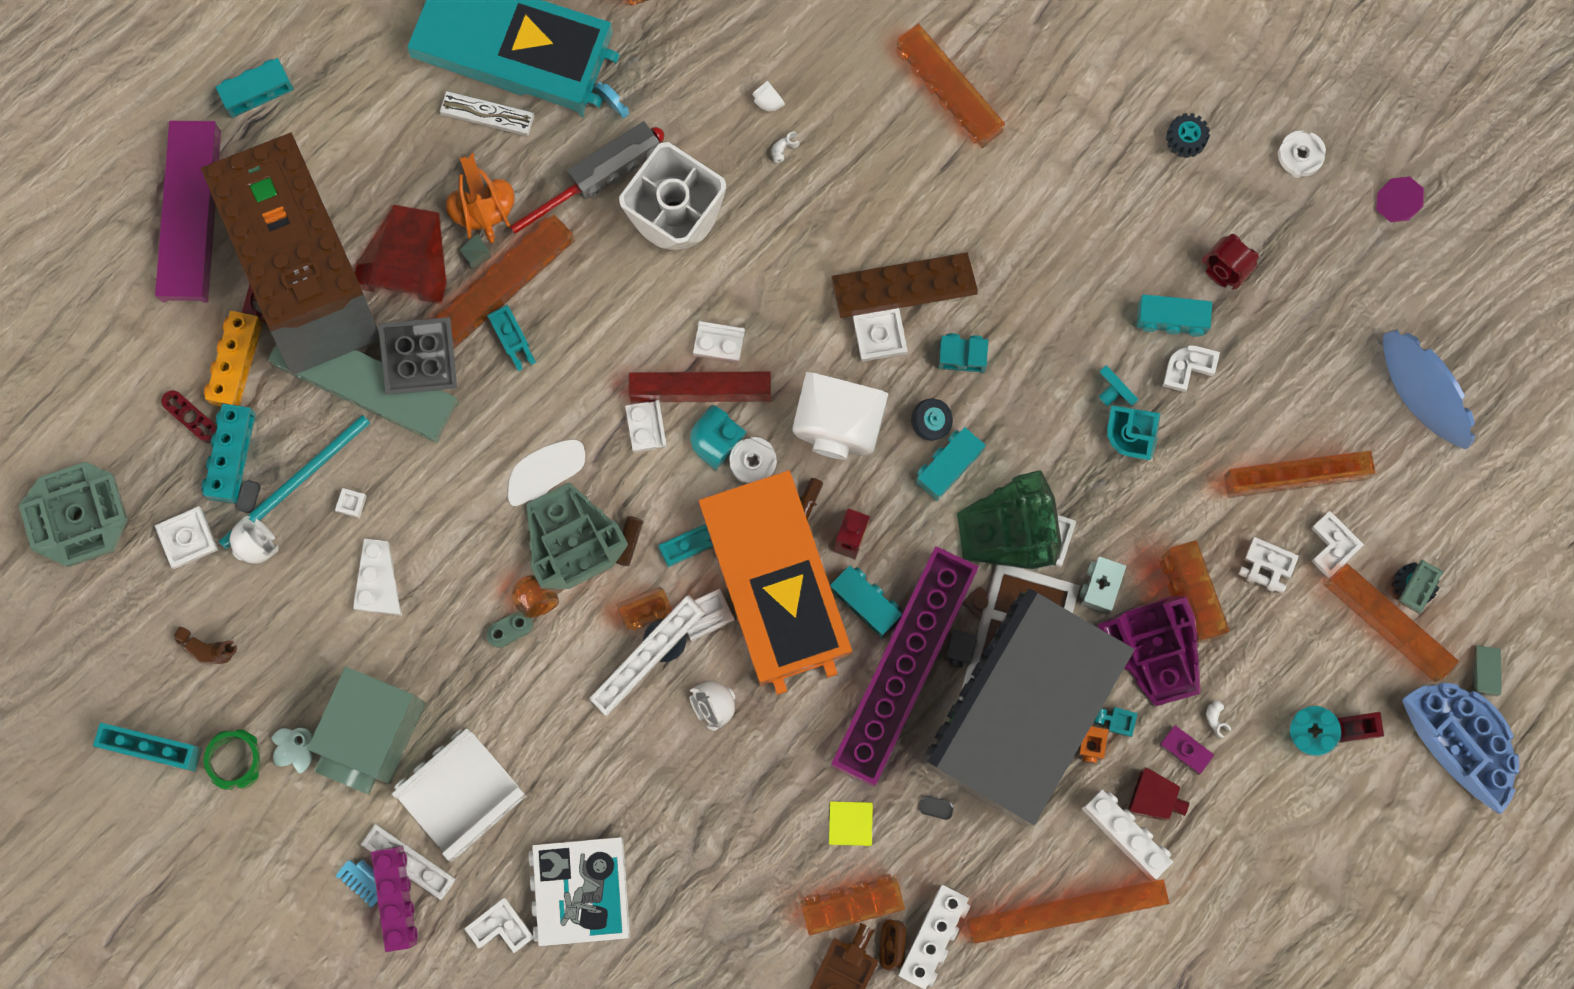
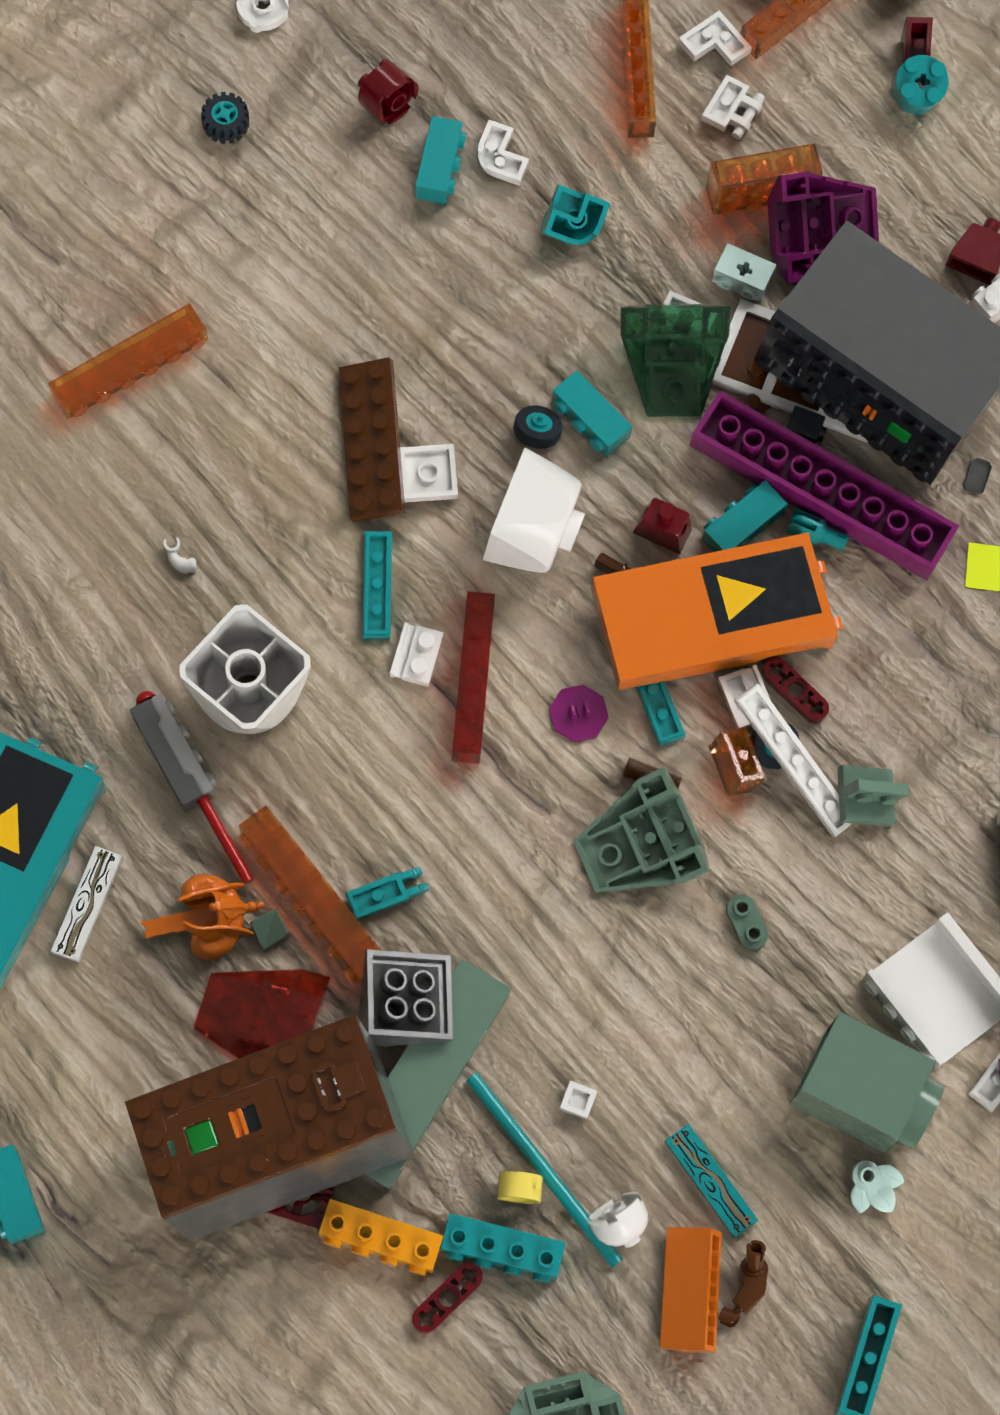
camera: 90 degrees left, 5 degrees down
(186, 537) = (605, 1307): white plate -> none
(187, 213) = (172, 1287): magenta tile -> none
(201, 603) = (691, 1289): none -> orange brick
(223, 738) = (913, 1241): green piece -> none
(248, 496) = (556, 1229): dark grey piece -> none
(274, 461) = (519, 1187): none -> light yellow piece
(291, 615) = (711, 1181): none -> teal tile
(376, 580) = (675, 1075): white wing -> none
(528, 597) = (713, 891): clear orange helmet -> none
(544, 470) = (554, 869): white sticker -> none
(611, 98) = (90, 749): medium azure tile -> none
(625, 722) = (868, 795): none -> sand green bracket
(646, 426) = (512, 746): white plate -> none
(681, 478) = (578, 713): none -> magenta piece
(714, 703) = (853, 695): white cylinder -> none
(715, 436) = (534, 667): teal brick -> none
(723, 638) = (795, 678): none -> dark red beam
(749, 448) = (563, 613): white plate -> none
(768, 98) = (114, 567): white piece -> none
(777, 304) = (377, 585): none -> teal tile
(862, 667) = (819, 532): none -> teal arm
(963, 354) = (462, 385): teal brick -> none
(1115, 389) = (520, 230): teal tile -> none
(1187, 749) = (928, 216): magenta plate -> none
(1212, 713) = (892, 185): white arm -> none

